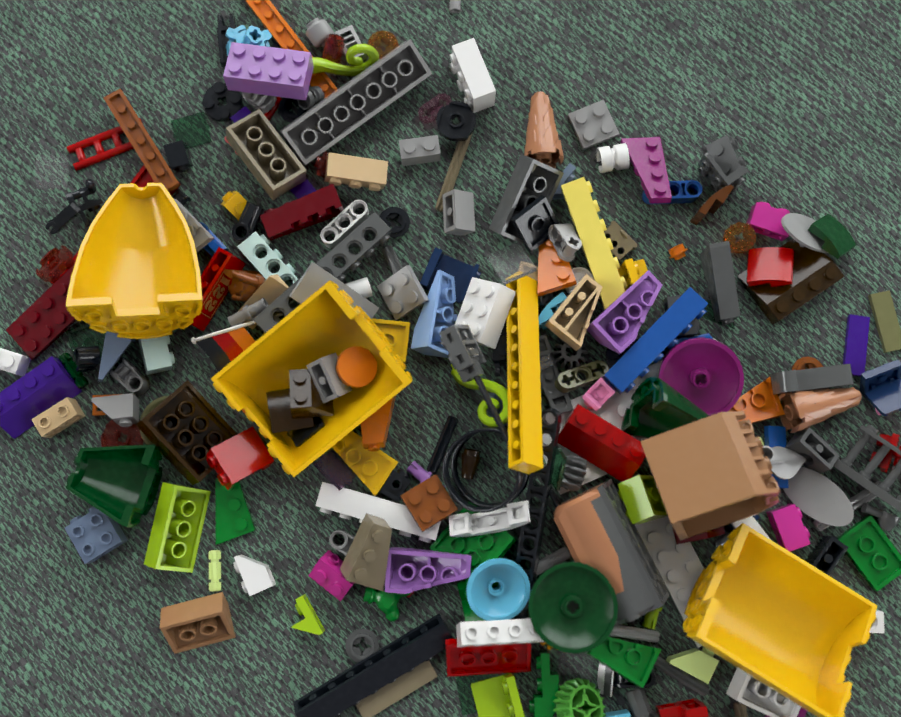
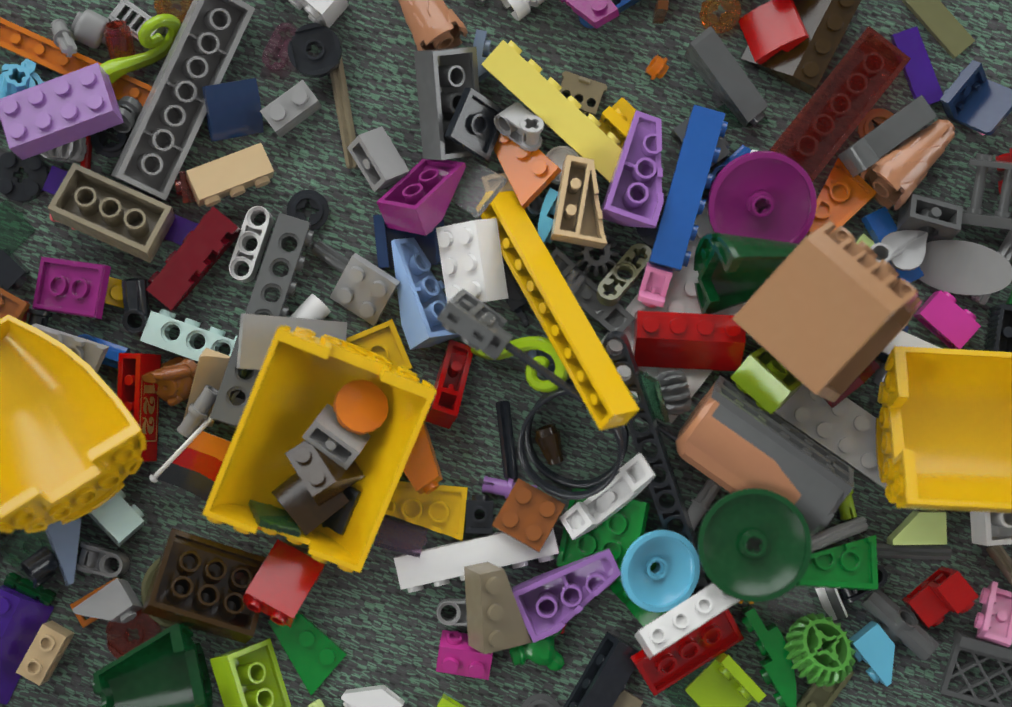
camera: 30 degrees left, 5 degrees up
(213, 189) = (71, 287): none -> magenta tile
(257, 410) = (274, 518): none -> clear green piece
(298, 28) = (63, 37): none -> light grey axle
(382, 131) = (233, 109): none -> dark blue slope
(424, 386) = (450, 384): none -> red slope
(473, 251) = (421, 196): none -> magenta slope
(792, 339) = (841, 102): none -> clear red brick

